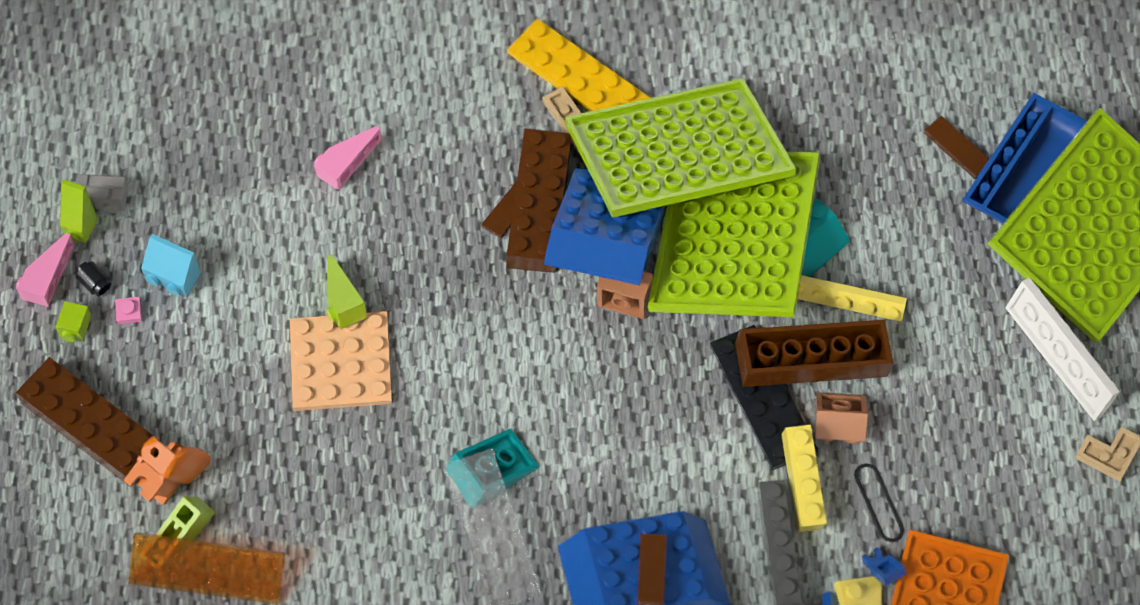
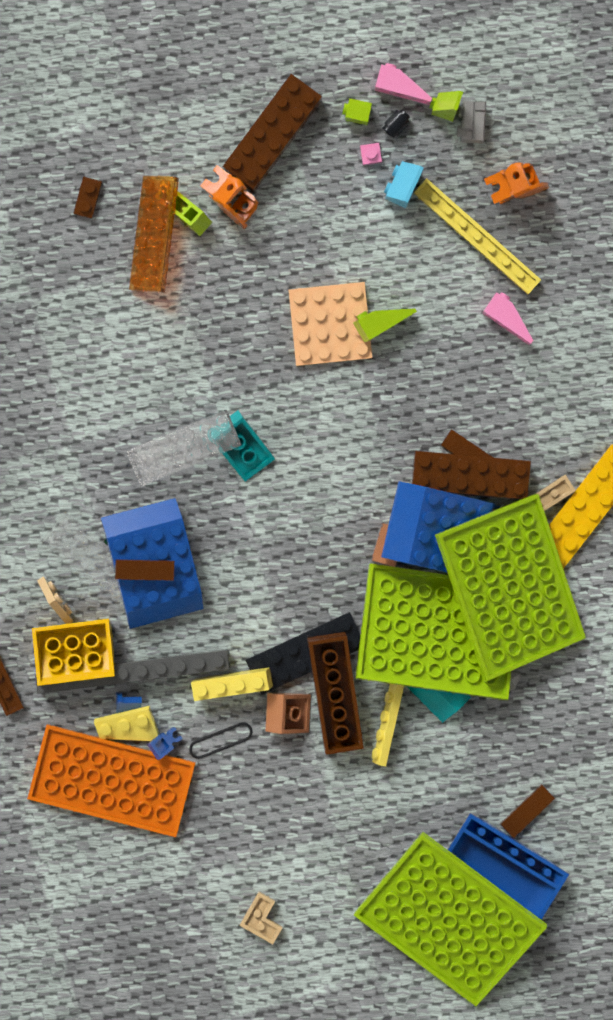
camera: 85 degrees right, 25 degrees up
(181, 149) = (515, 188): none -> orange piece
(246, 187) = (477, 236): none -> light yellow plate
(1062, 349) = (343, 886): white plate -> none

